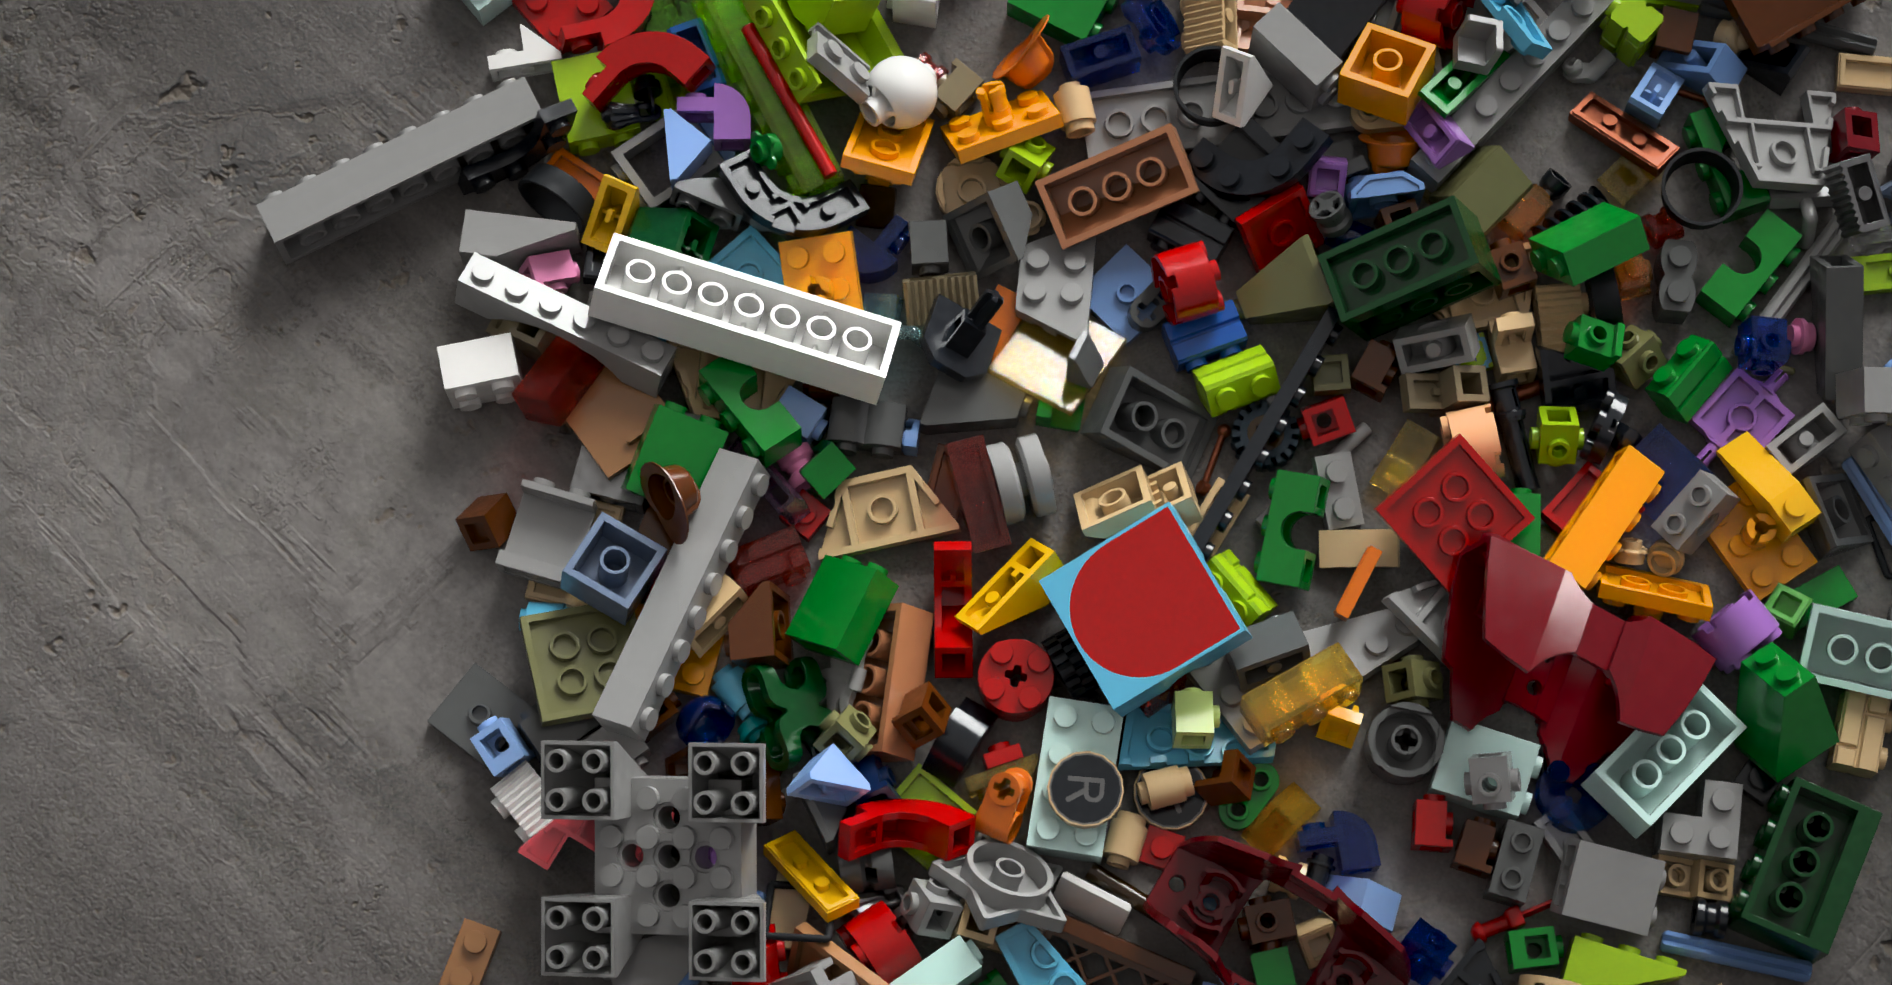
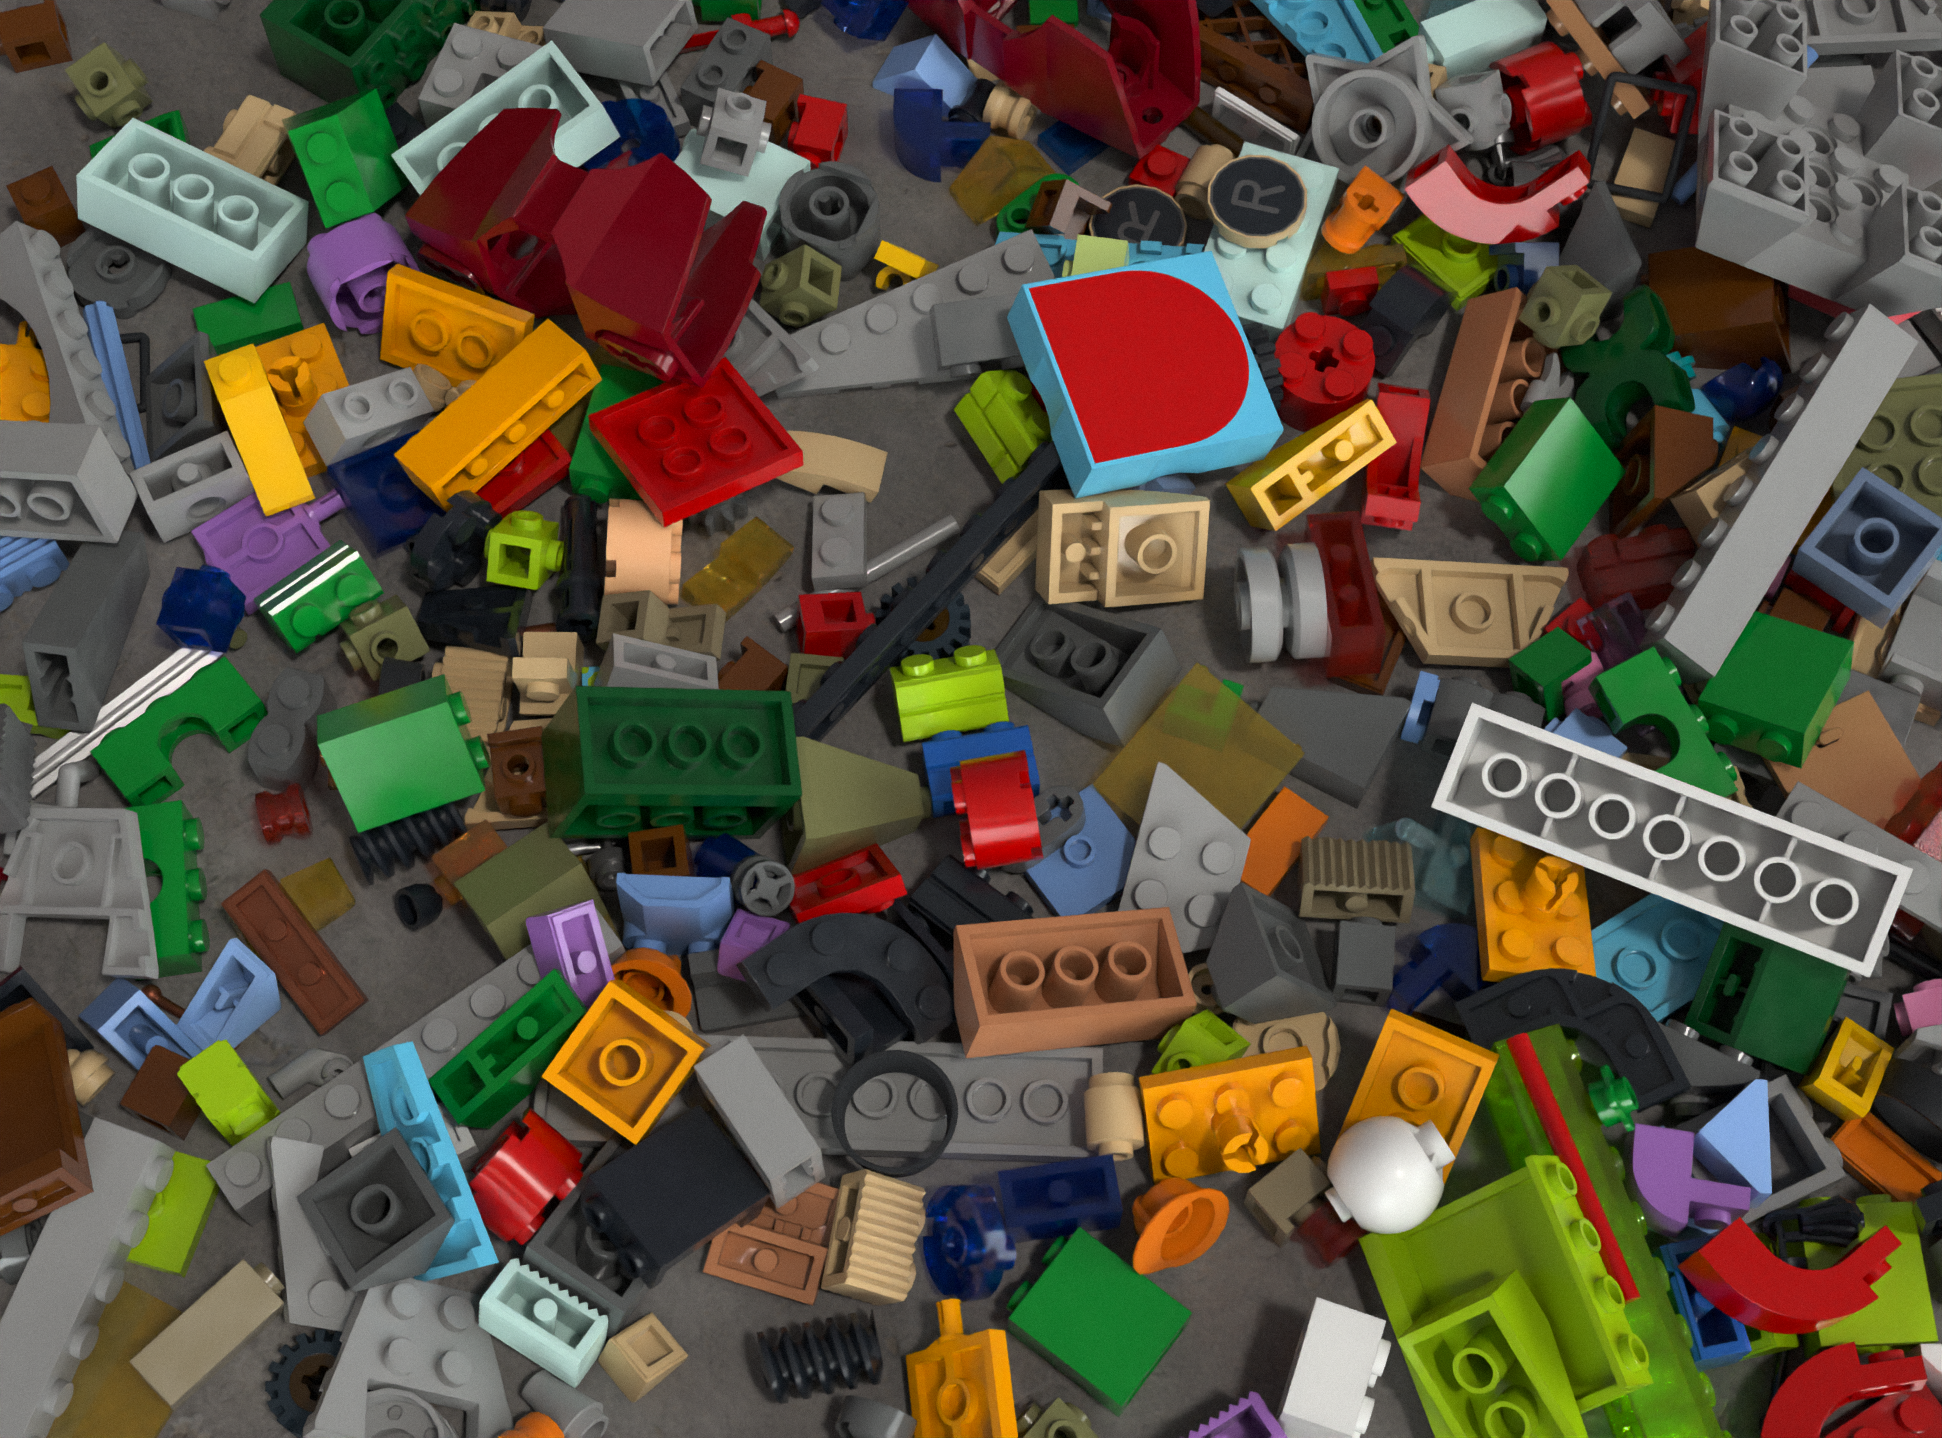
camera: 170 degrees left, 10 degrees down
(672, 496) = (1782, 611): reddish brown piece -> none
(811, 876) = (1613, 160): yellow tile -> none
(829, 779) = (1602, 244): light blue slope -> none
(838, 63) = (1488, 1214): light grey plate -> none
(922, 715) = (1456, 320): reddish brown brick -> none
(960, 338) = (1344, 790): black piece -> none
(1084, 362) = (1165, 731): dark grey slope -> none
(1165, 787) = (1147, 215): tan brick -> none
(1203, 485) = (1020, 582): copper hinge -> none
(1239, 87) = (860, 1070): white slope -> none
(1291, 497) = (901, 517): green arch -> none
(1301, 695) = (953, 262): clear yellow brick -> none
(1357, 583) = (844, 401): orange tile -> none
(1477, 44) = (475, 1073): light grey panel -> none
(1593, 342) = (435, 637): green brick -> none
(1716, 160) = (190, 782): black tyre -> none
(1788, 608) = (290, 299): bright green slope -> none
(1802, 336) = (142, 636): bright pink plate -> none

